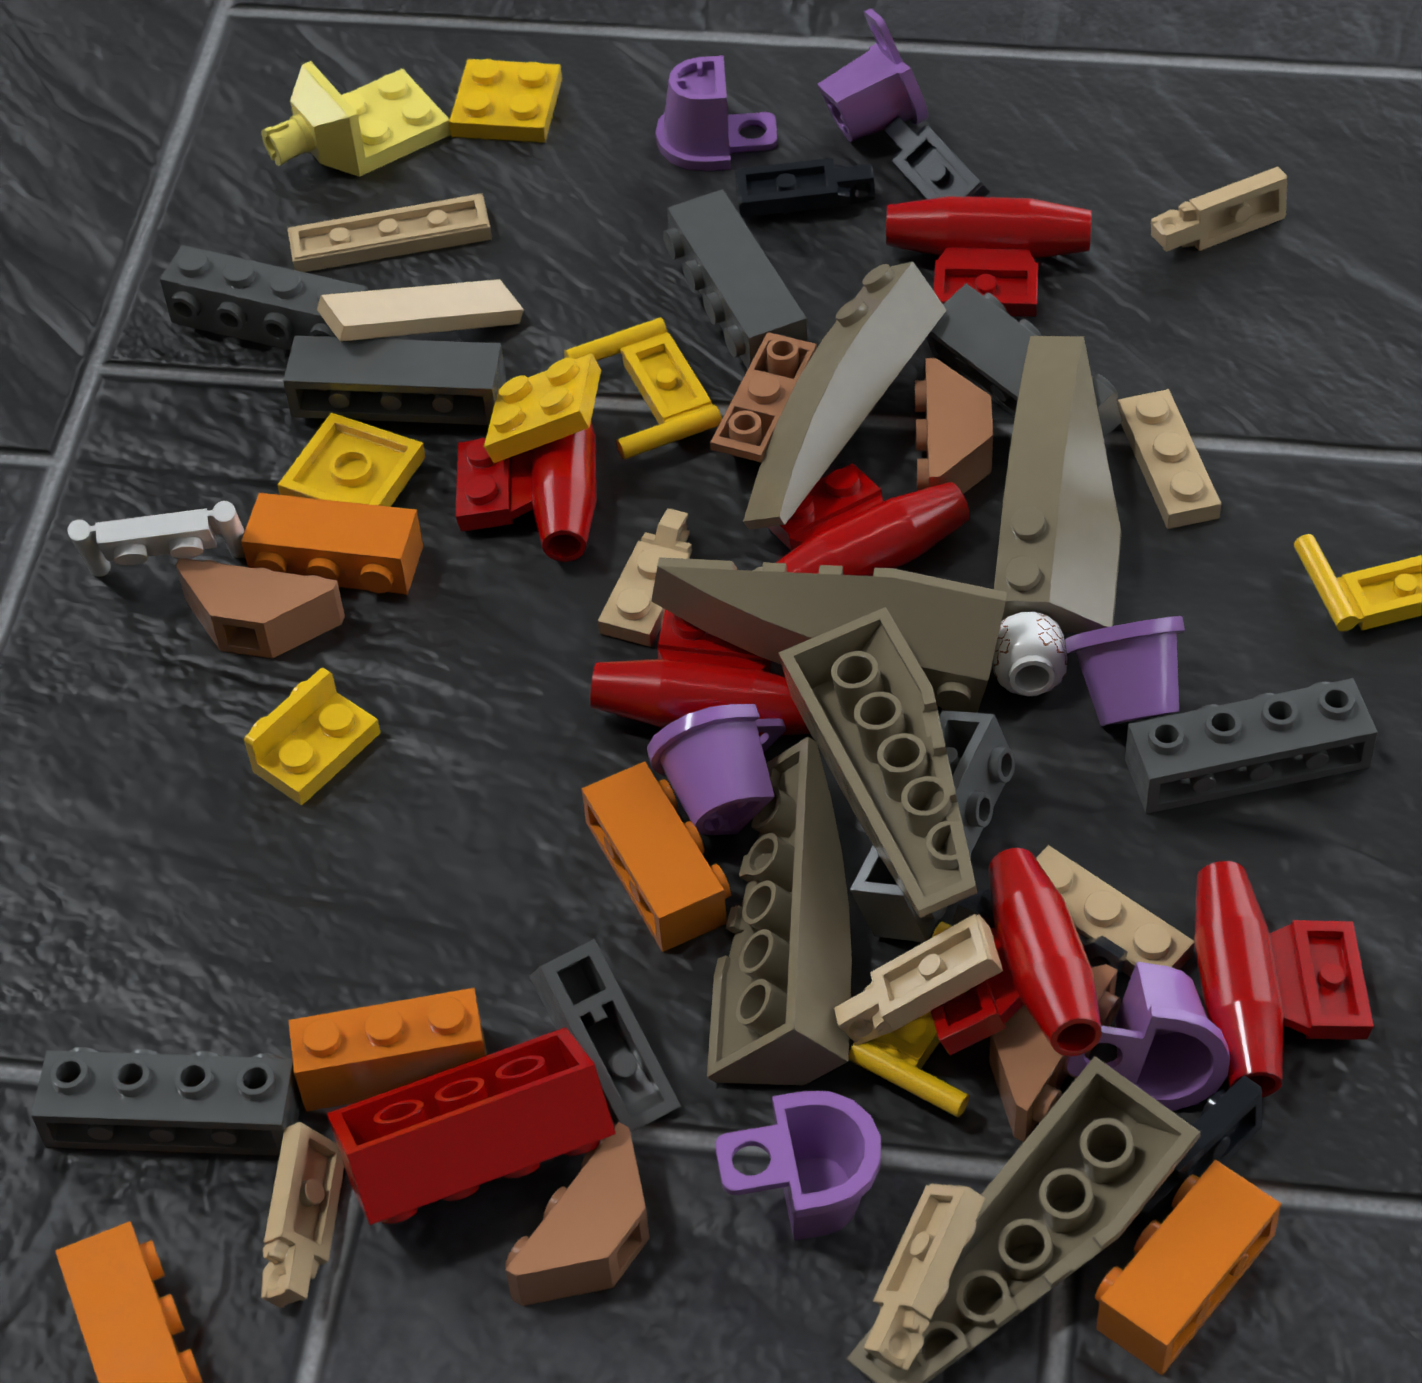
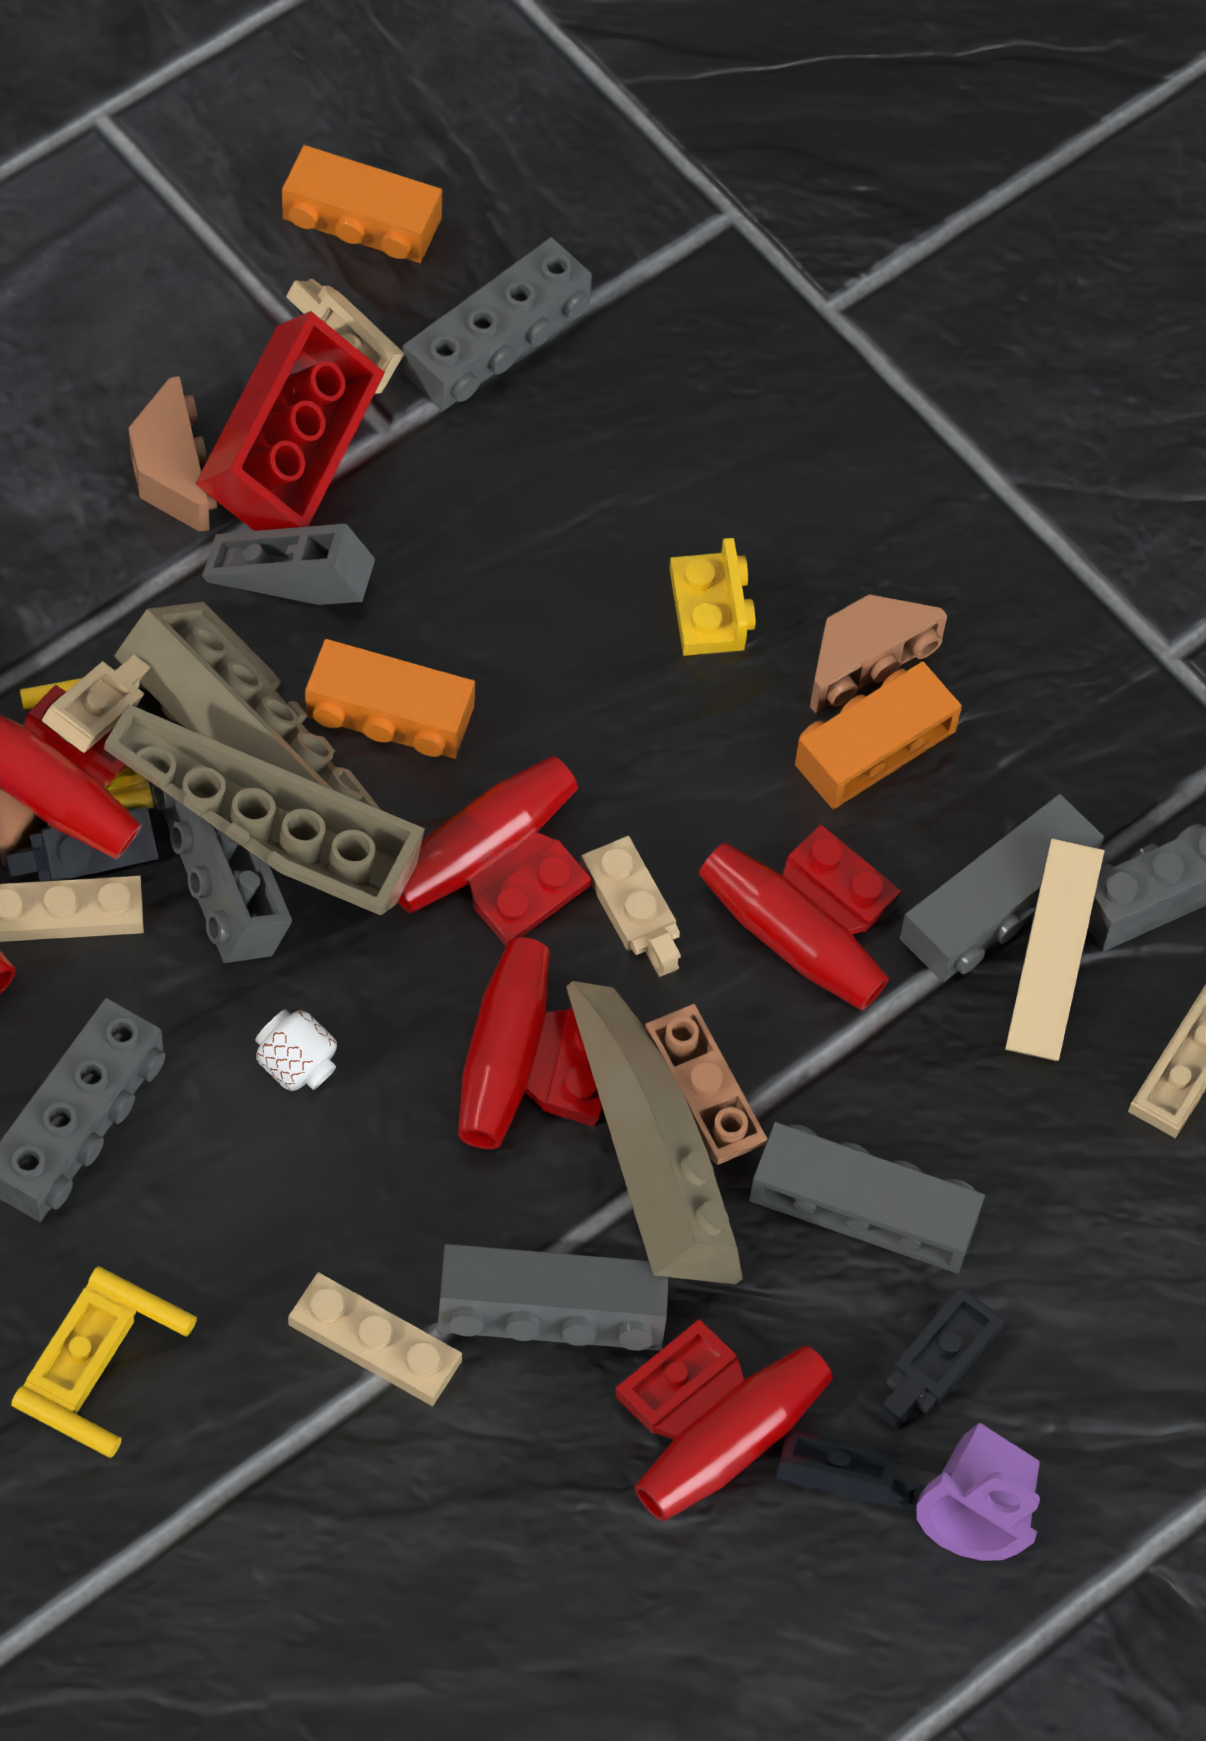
camera: 125 degrees right, 10 degrees up
(137, 538) = (968, 600): white plate -> none
(353, 464) = (944, 804): yellow plate -> none
(383, 1046) = (403, 449): orange brick -> none
(543, 407) = (848, 929): yellow plate -> none
(663, 381) = (818, 1070): yellow plate -> none
(696, 121) = (1095, 1359): medium lavender container -> none
(718, 765) = (408, 761): medium lavender container -> none
(768, 610) = (430, 932): dark tan wedge -> none
(819, 1153) = (63, 564): medium lavender container -> none
(955, 429) = (552, 1204): nougat slope -> none
(1059, 497) = (388, 1167): dark tan wedge -> none
(1131, 668) = (212, 1089): medium lavender container -> none
(1224, 212) = (572, 1625): tan hinge -> none

